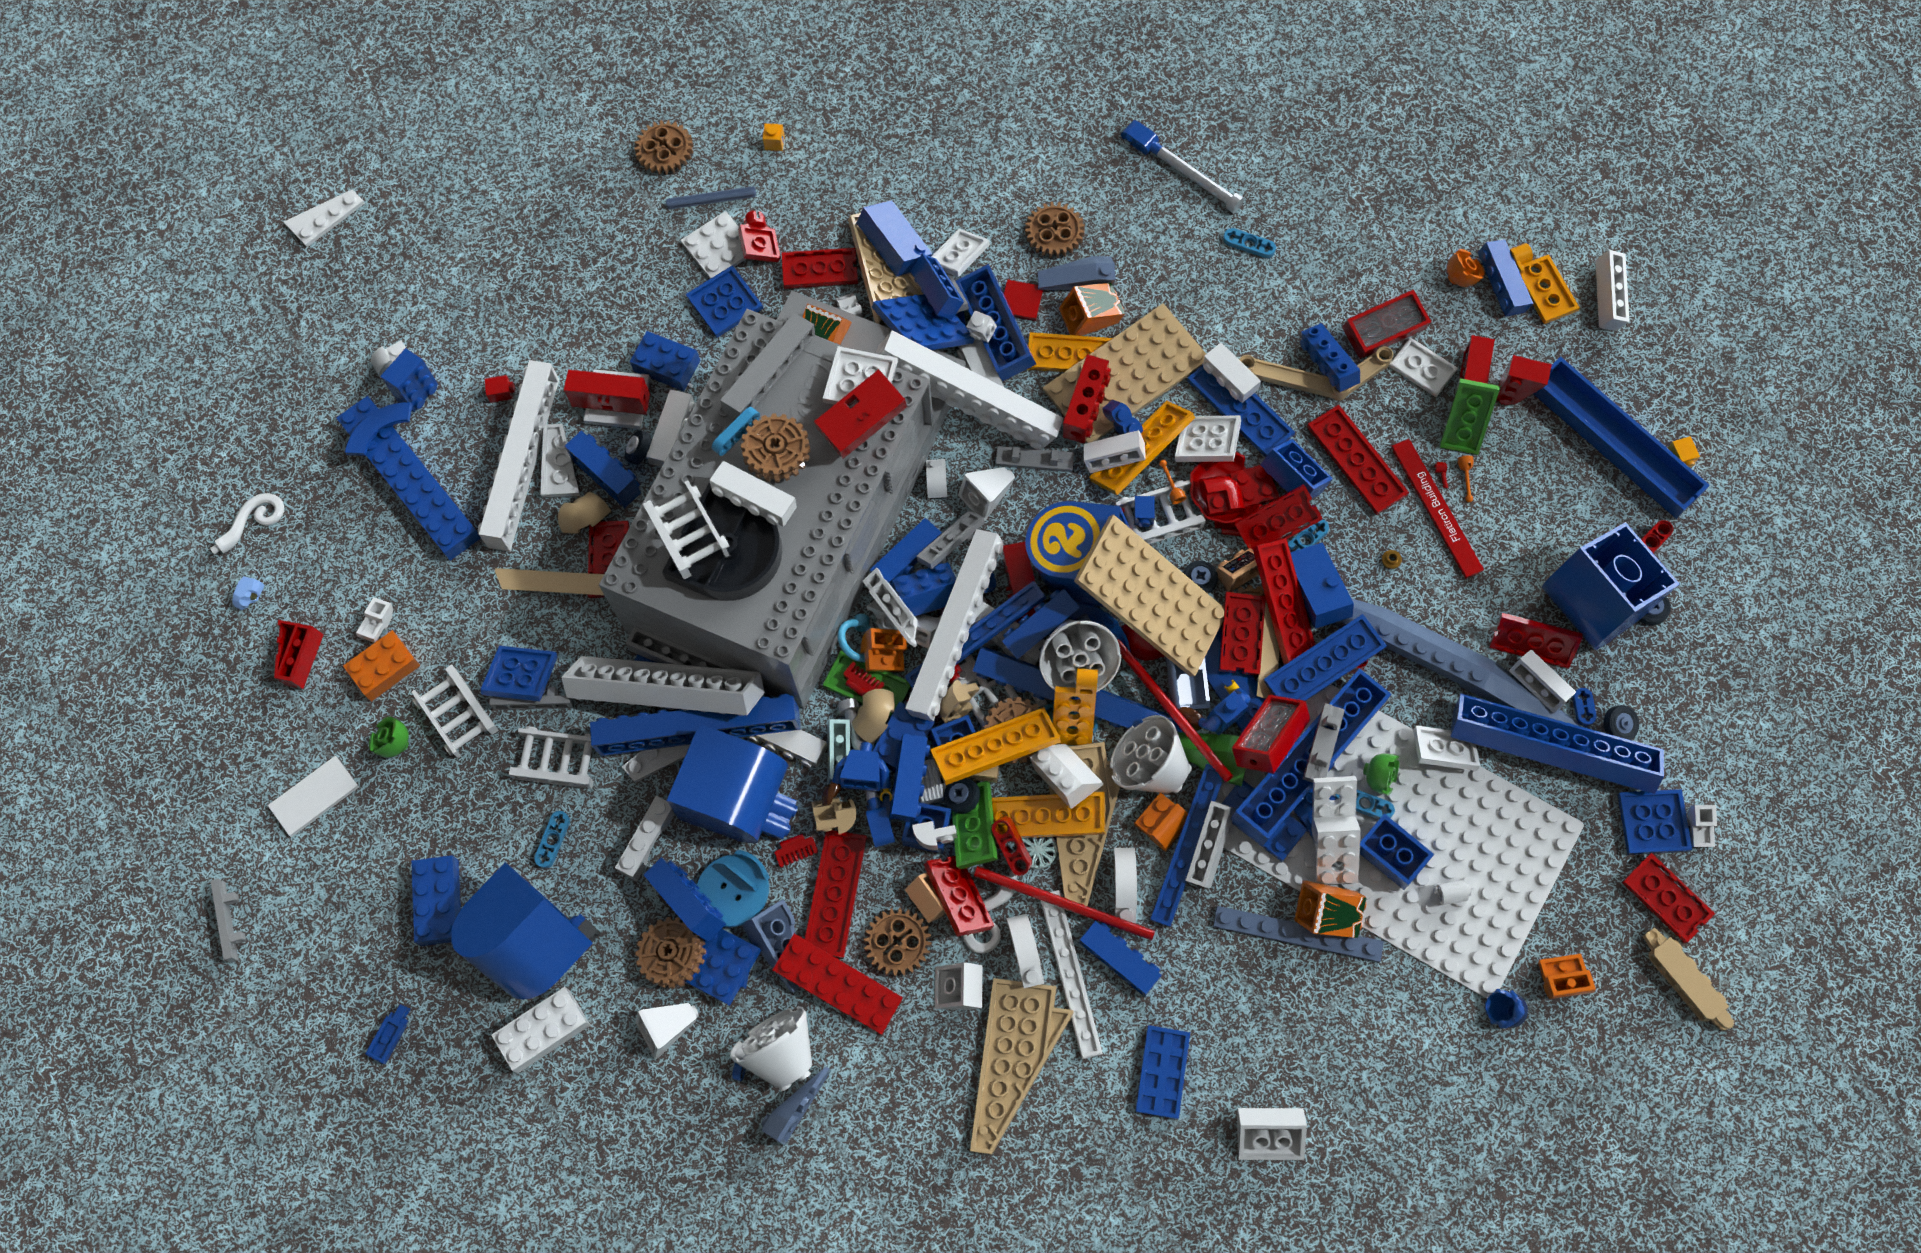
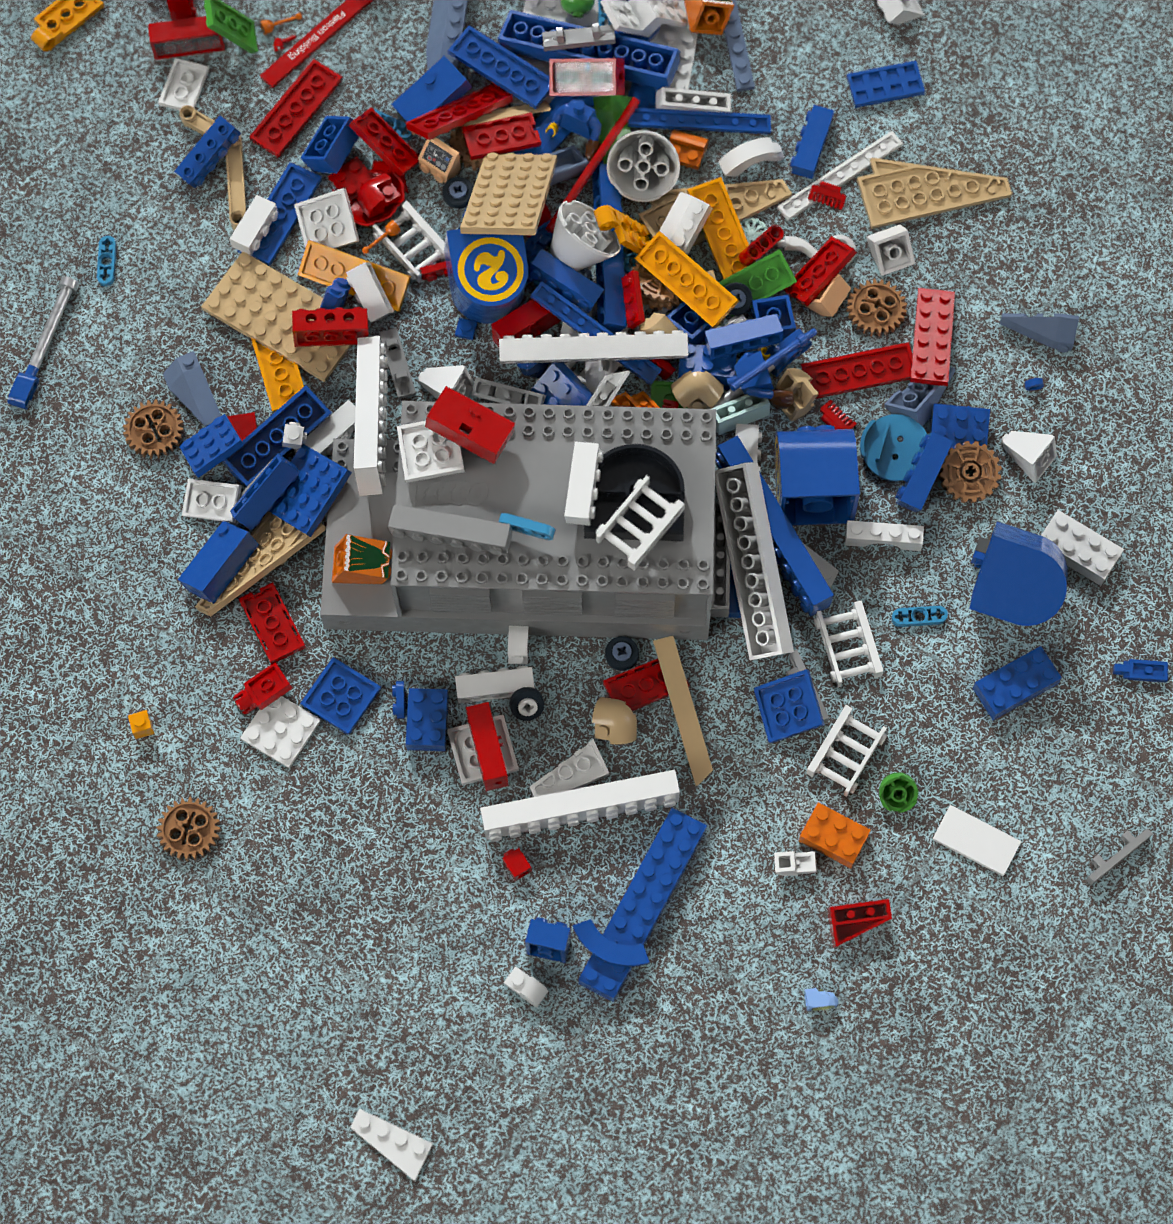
camera: 115 degrees left, 0 degrees up
(234, 534) = (771, 1047): white plant -> none
(603, 469) = (563, 721): blue brick -> none
(703, 348) = (399, 692): none -> blue plate
(711, 197) = (229, 760): sand blue axle -> none
(777, 1049) = (1004, 357): white cone -> none
(778, 462) = (527, 472): medium nougat piece -> none
(849, 304) = (307, 576): white brick -> none
(875, 828) = (800, 341): none -> blue bar
(928, 836) = (784, 301): white brick -> none
(997, 686) = (633, 299): none -> red plate
(1010, 264) = (211, 445): none -> blue plate
(1025, 950) = (836, 206): white arch -> none
(1054, 947) = (830, 191): none -> red piece
(1064, 903) = (788, 194): red piece -> none
(1091, 308) = (229, 366): orange slope -> none
(1144, 511) = (418, 248): blue brick -> none
(1386, 324) = (154, 121): brick -> none
(1391, 564) = (380, 60): pearl gold plate -> none
(1463, 269) = (76, 76): orange cylinder -> none
(1505, 277) = (71, 44): brick -> none

